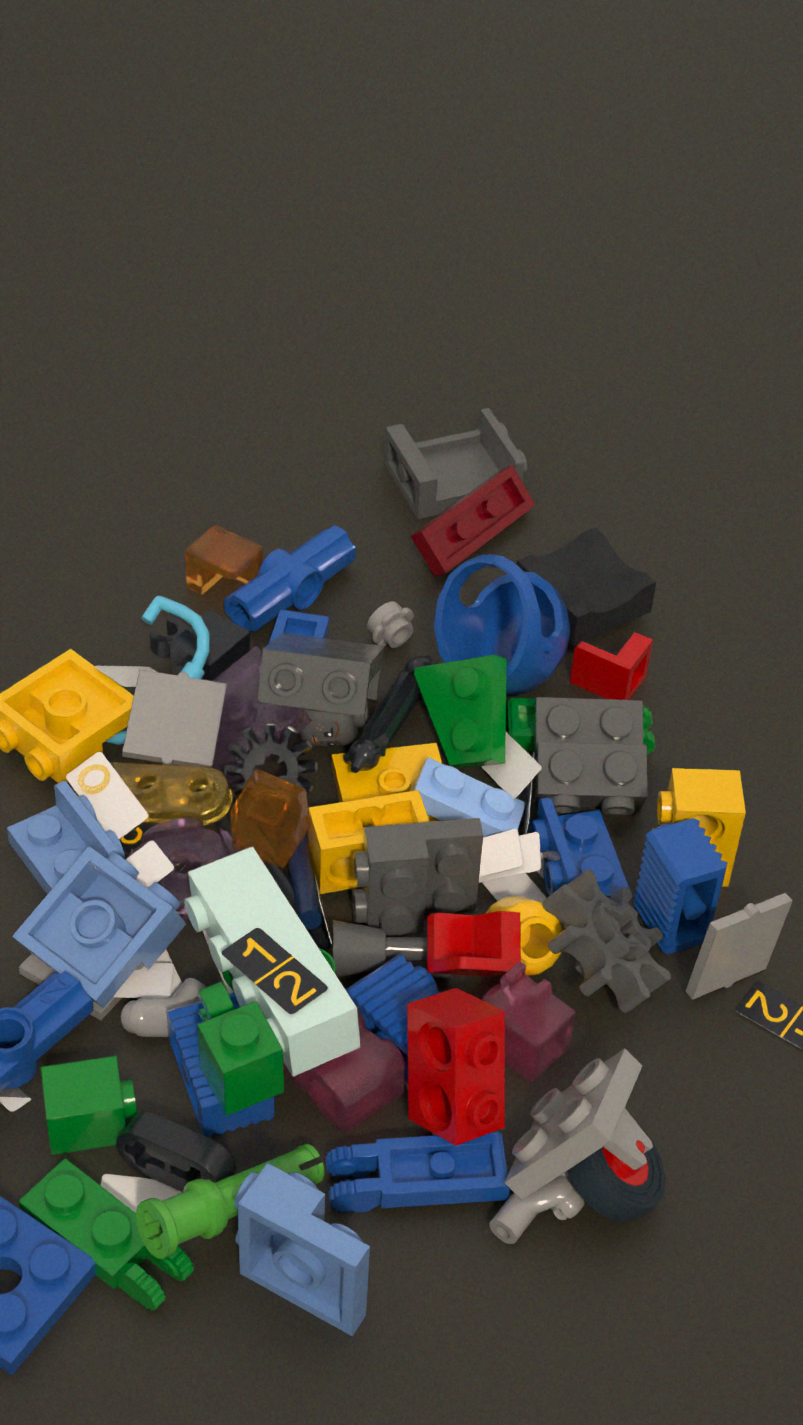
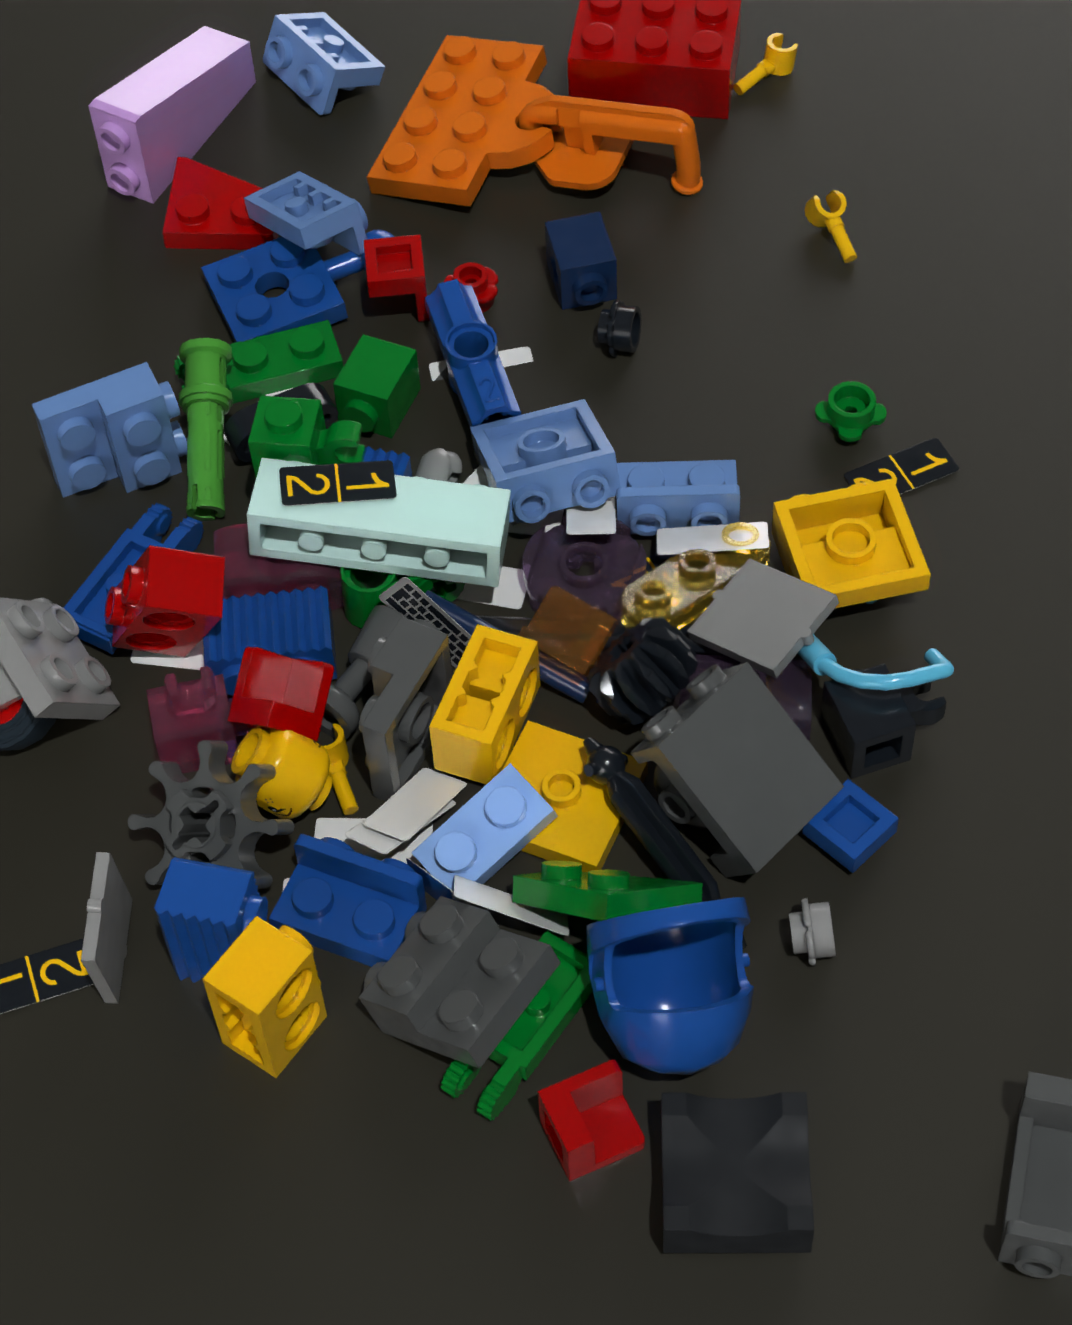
camera: 130 degrees right, 10 degrees up
(123, 675) = (871, 625): white sticker -> none
(220, 555) = (1021, 804): clear orange panel -> none
(290, 579) = (957, 868): blue piece -> none
(473, 521) = (949, 1133): dark red plate -> none

